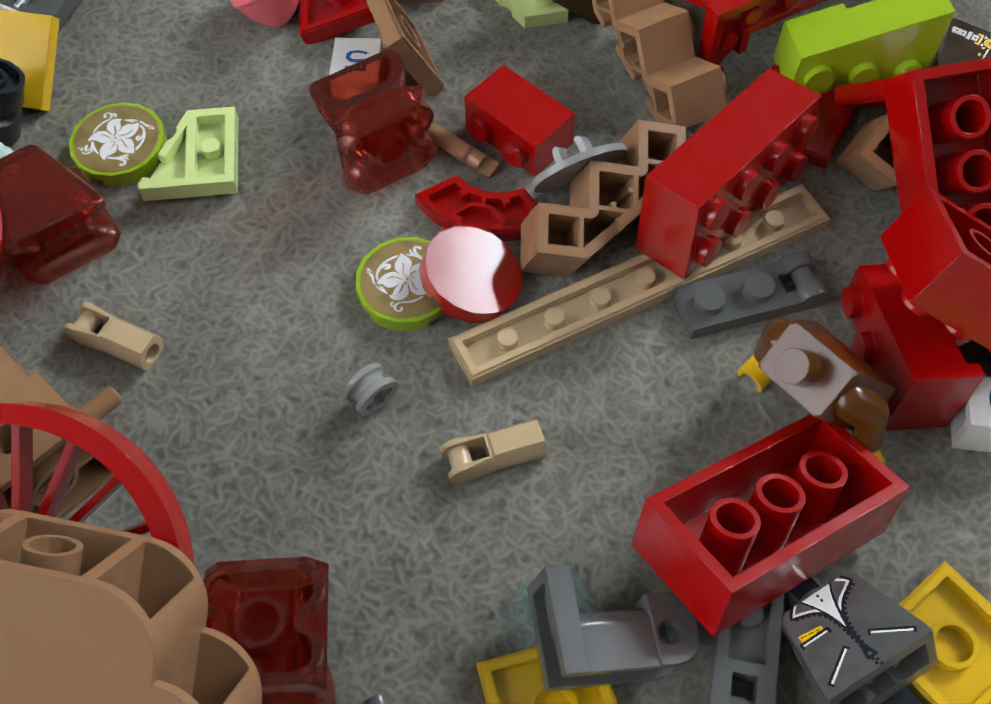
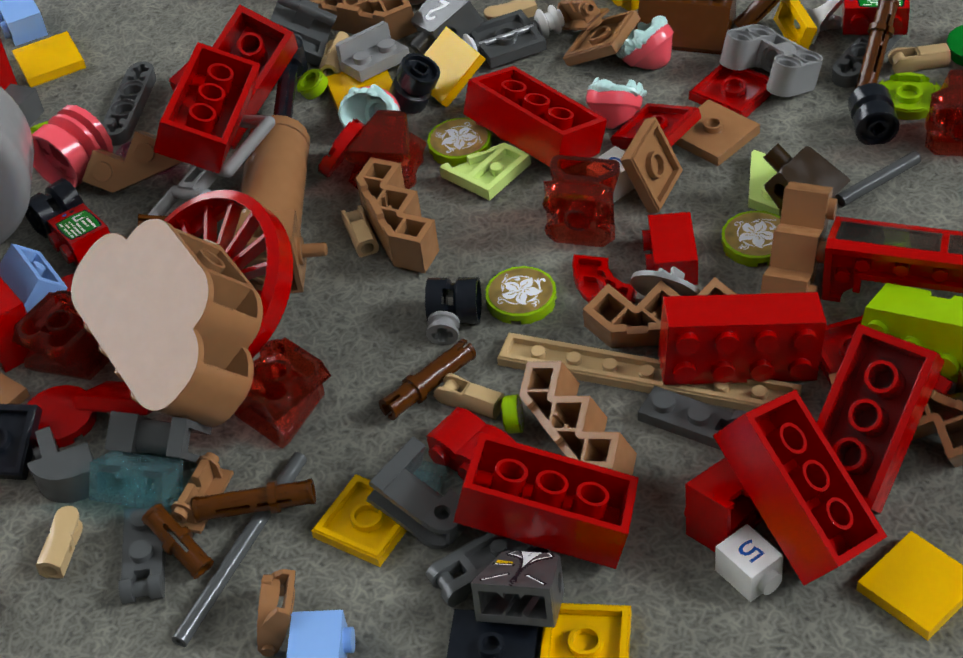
camera: 50 degrees right, 15 degrees down
(150, 288) = (396, 216): none -> medium nougat brick
(194, 58) = (533, 115): none -> red brick
(364, 334) = (465, 294): none -> black wheel
(423, 490) = (417, 386): none -> reddish brown pin
(463, 151) = (627, 244): medium nougat wheel -> none
(470, 274) = (552, 307): tile -> none
(573, 435) = (512, 414): none -> lime tile
(576, 56) = (749, 237): none -> tile
(578, 515) = (456, 438): none -> red brick
(669, 399) = (573, 420): none -> medium nougat brick
(823, 378) = (651, 460): reddish brown torso -> none

